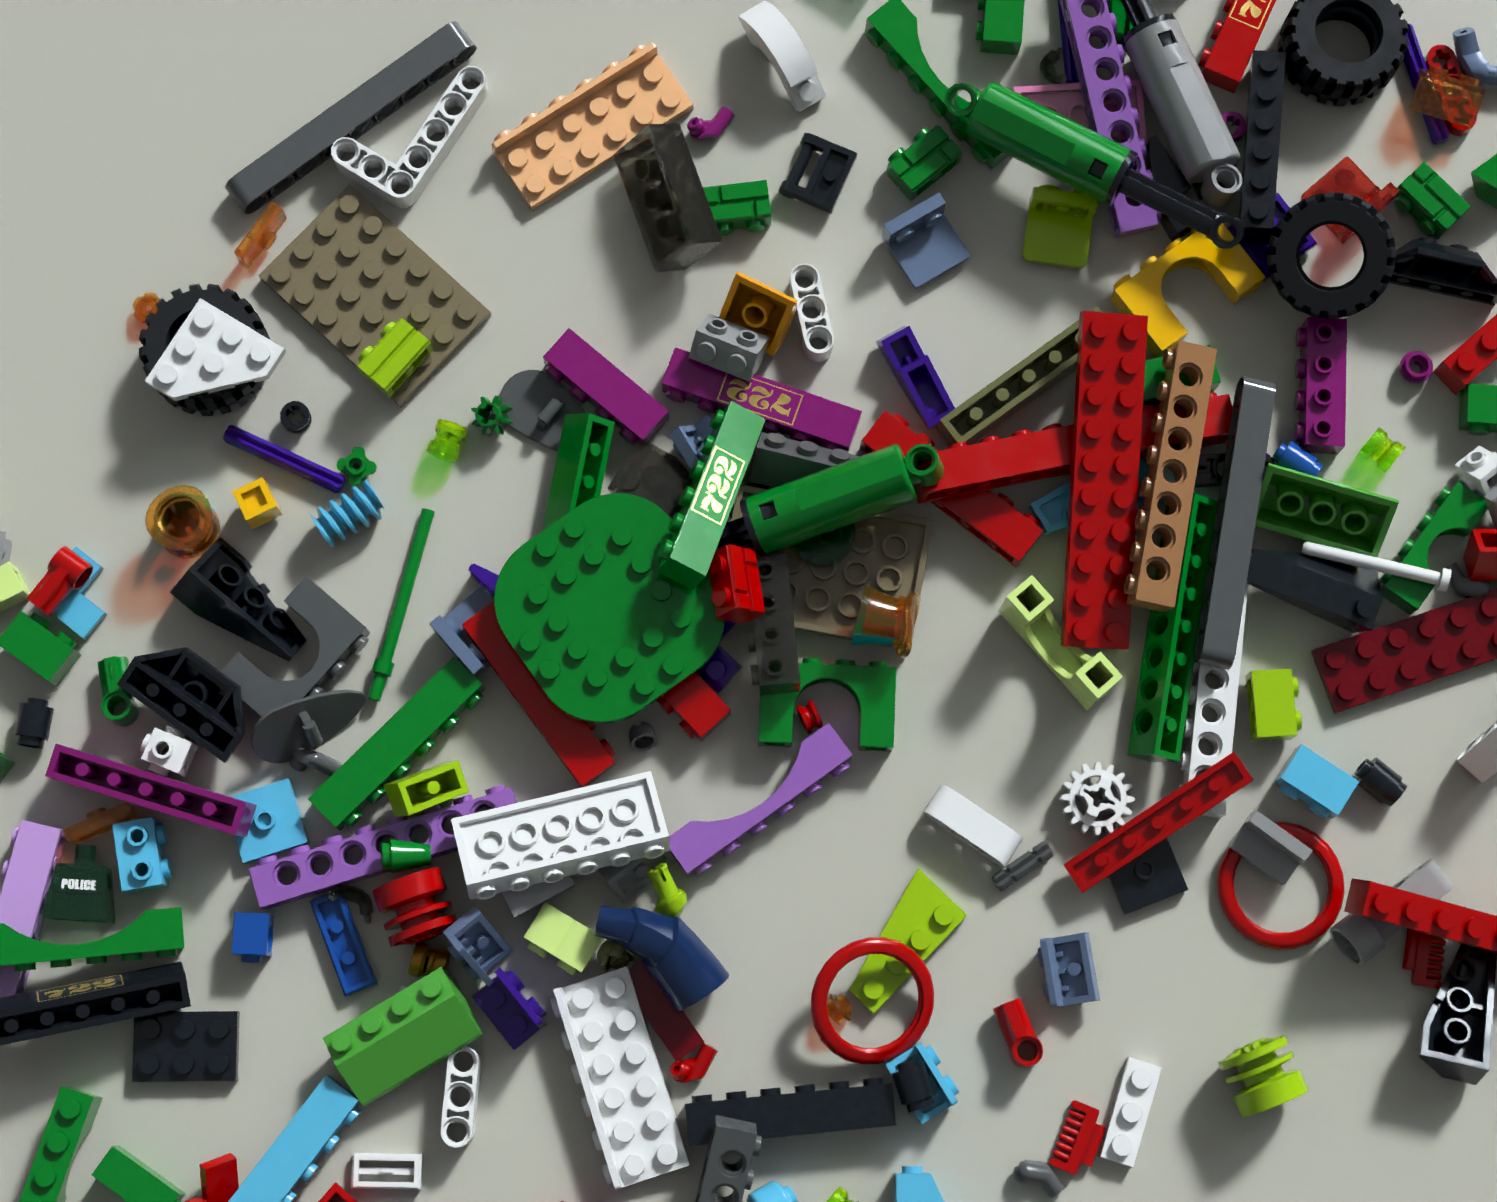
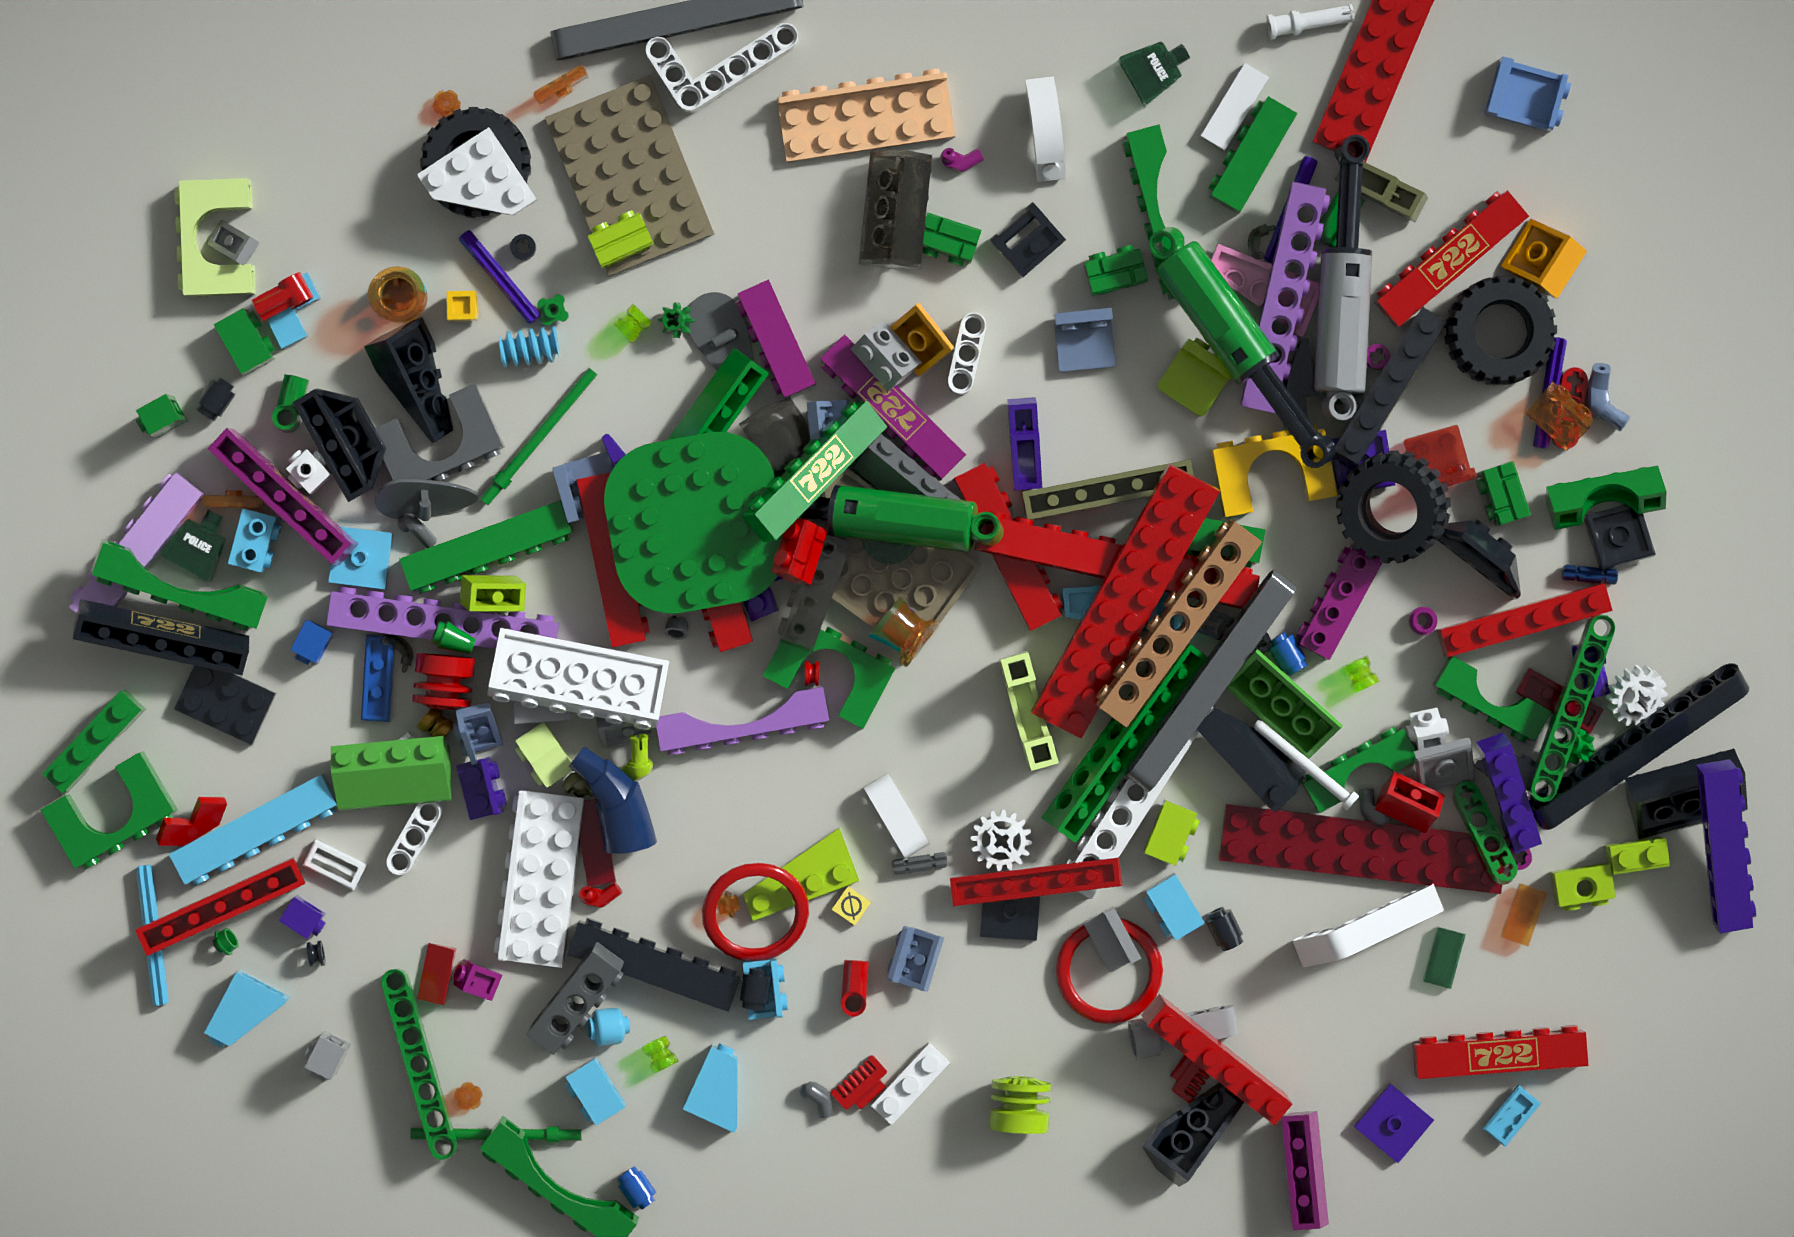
camera: 25 degrees right, 10 degrees up
(971, 946) = (851, 905): none -> light yellow tile

